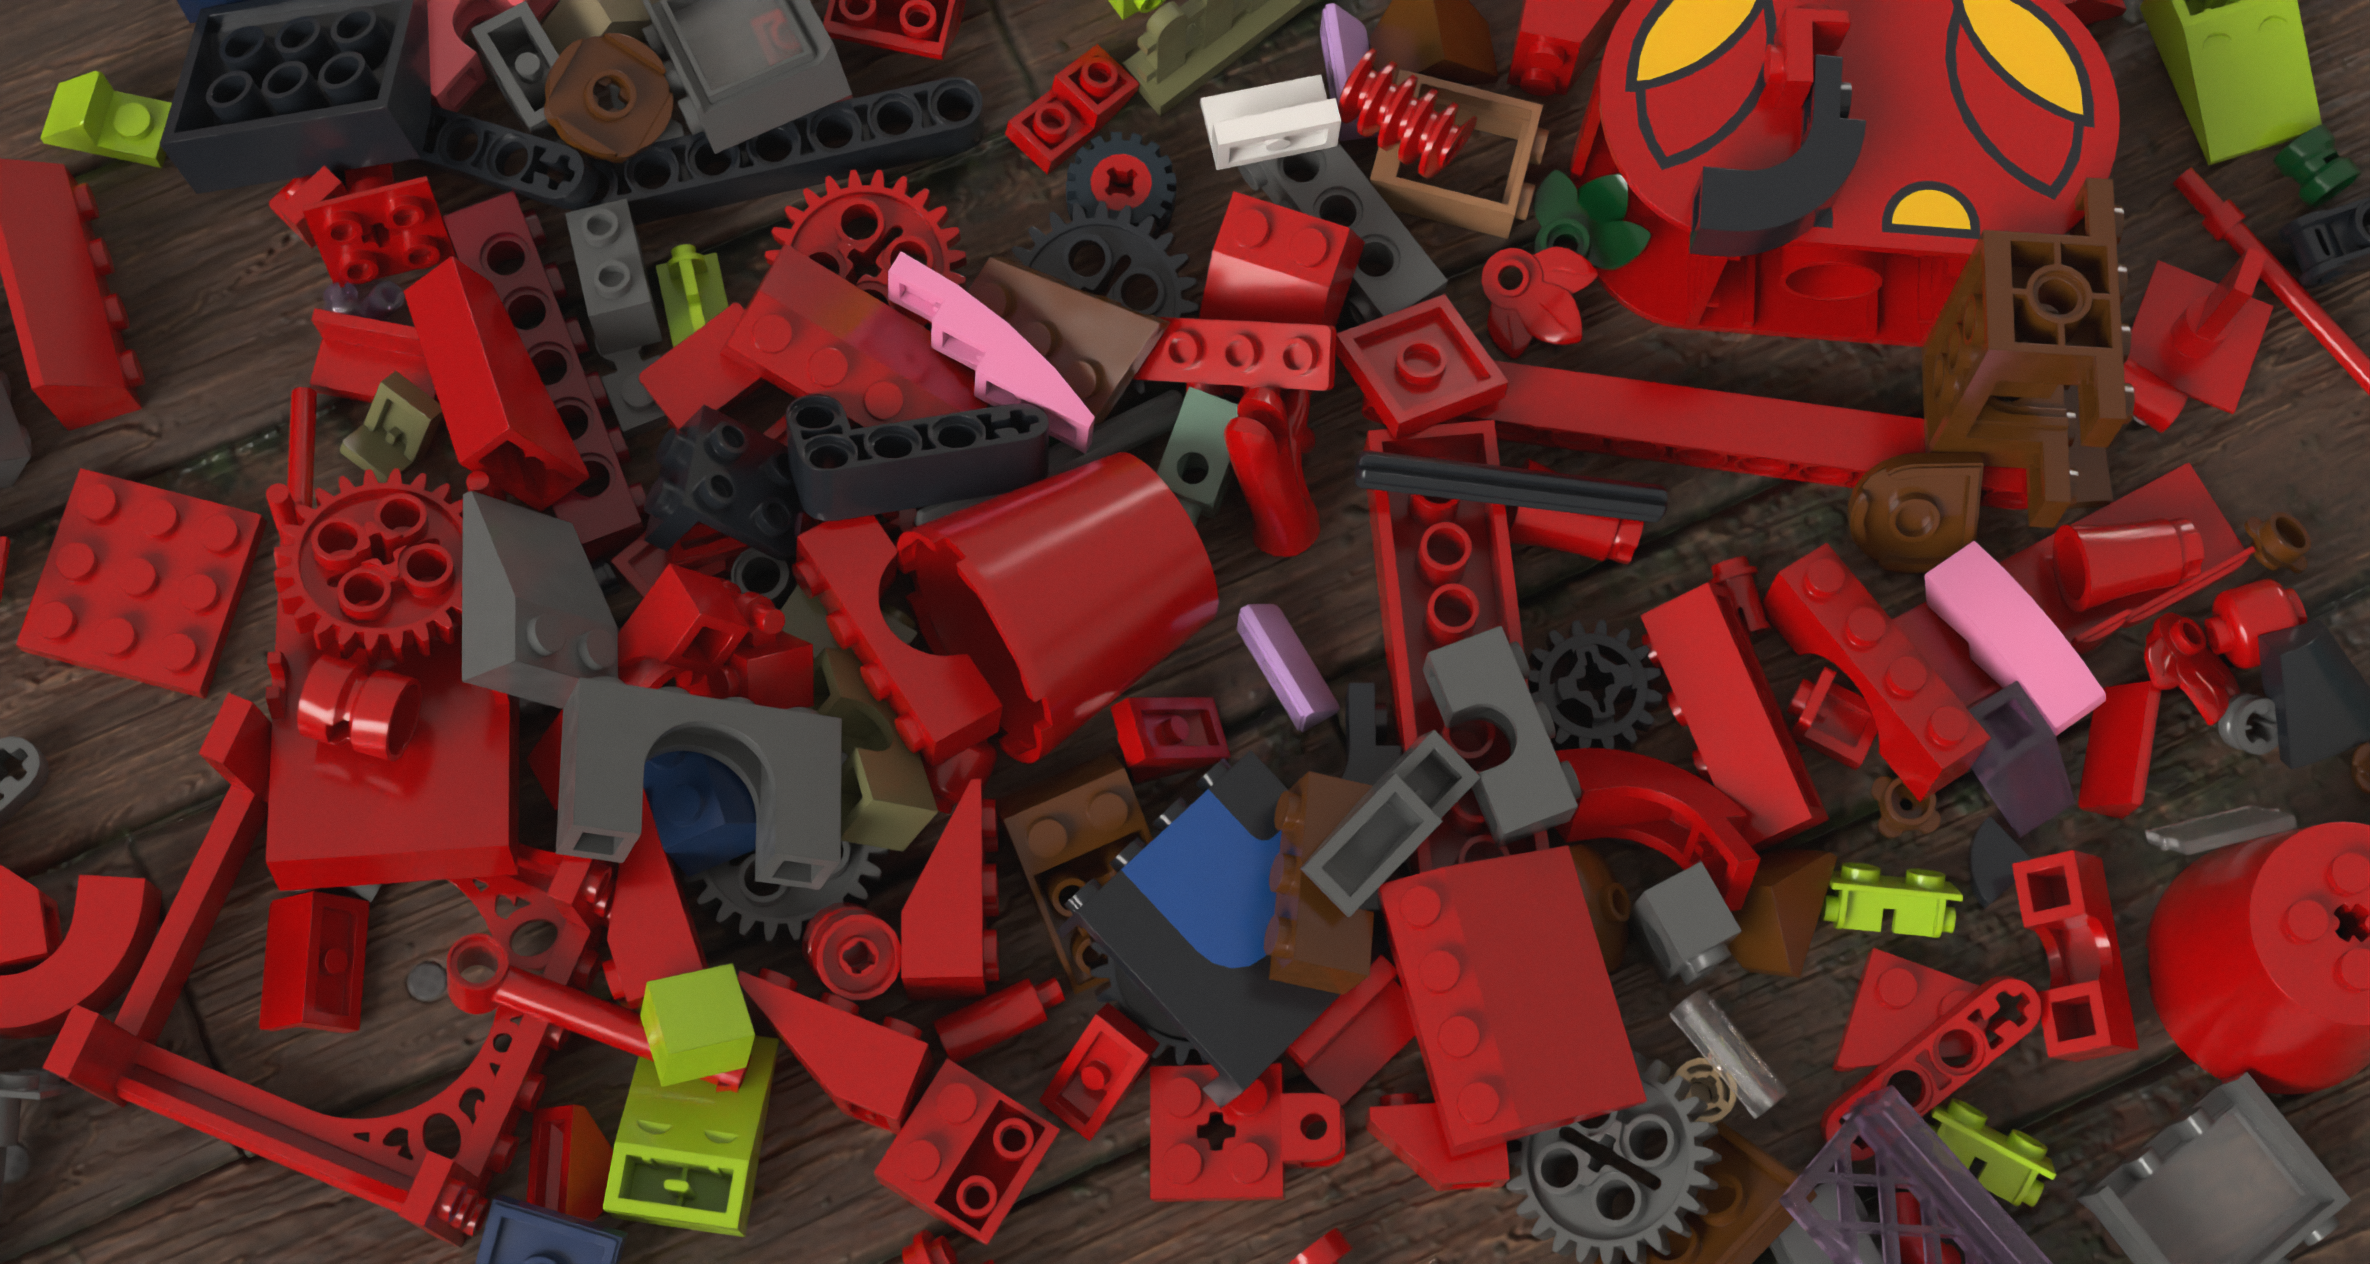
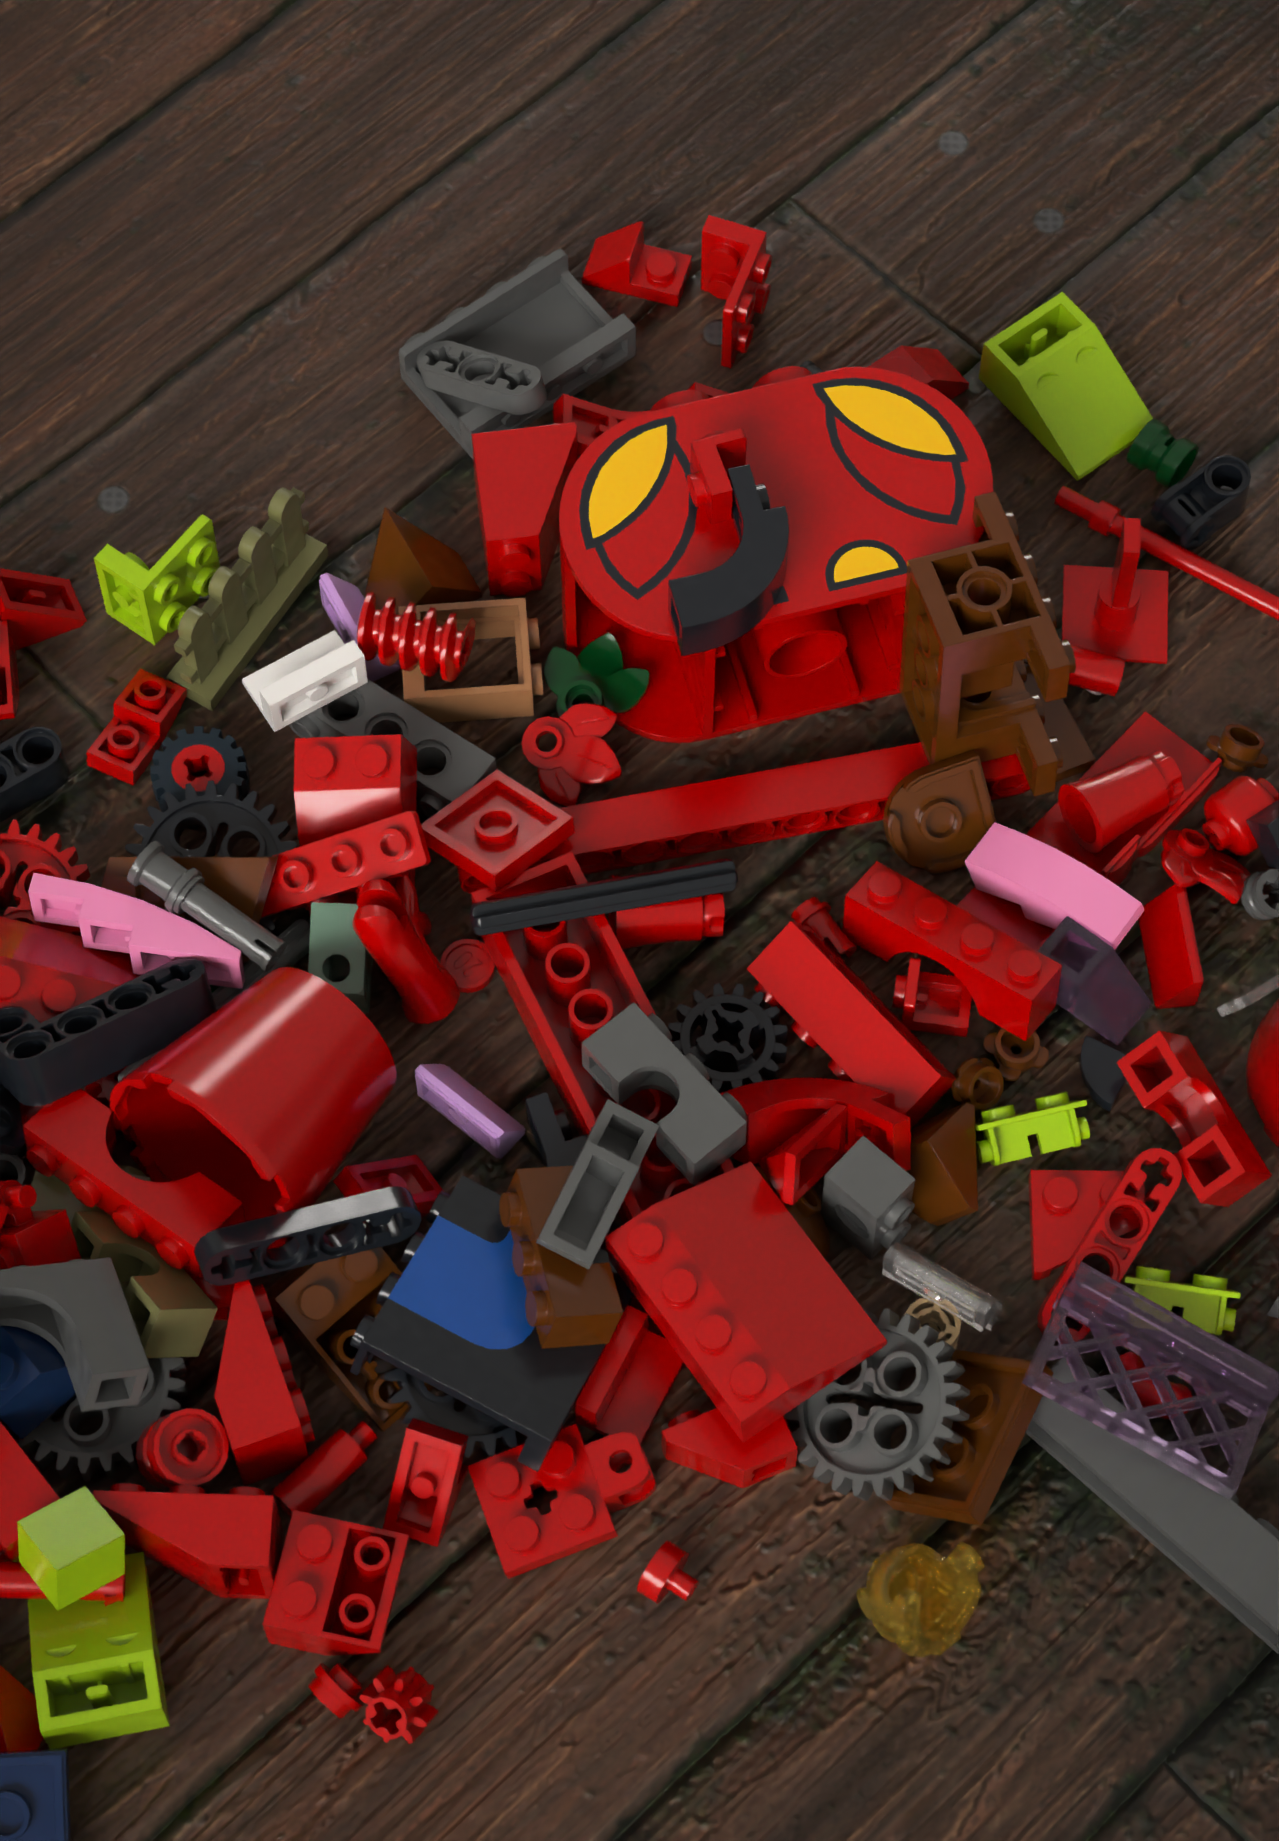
camera: 15 degrees left, 10 degrees down
(1057, 330) = (185, 892): none -> dark grey pin
(1058, 768) = (226, 1253): none -> black beam
(1339, 502) = (469, 964): none -> red piece
(1630, 856) = (806, 1155): none -> red slope
(1849, 831) = (978, 1083): none -> reddish brown plate

